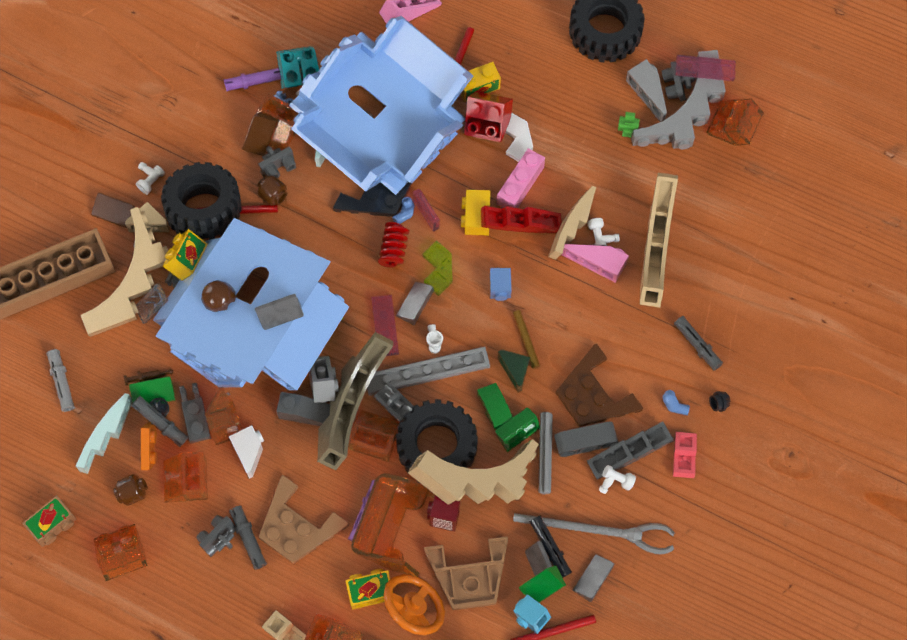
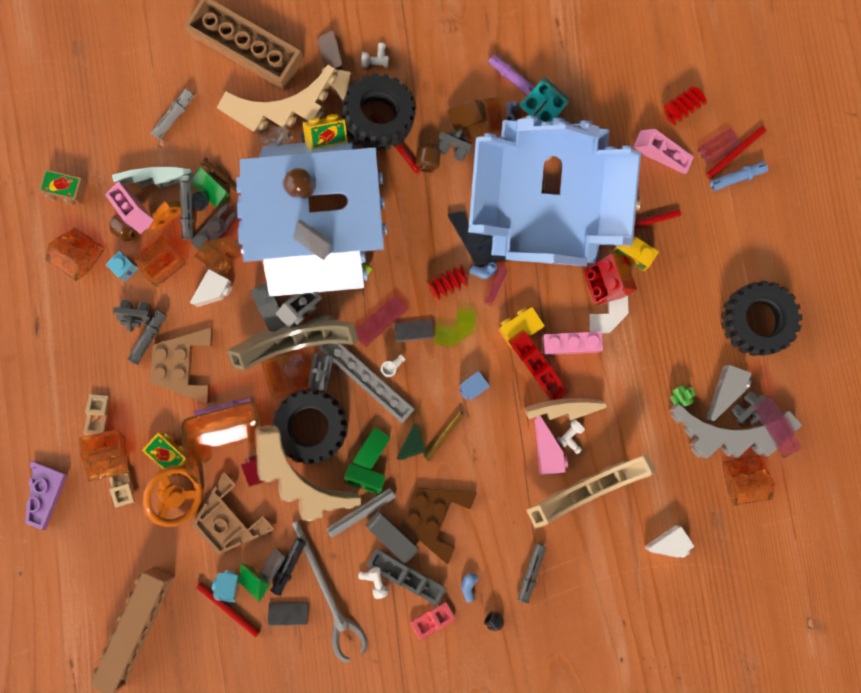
camera: 55 degrees right, 15 degrees up
(119, 465) = (129, 207): none -> bright pink brick
(165, 514) = (122, 266): none -> medium azure brick
(749, 213) = (671, 543): none -> white slope

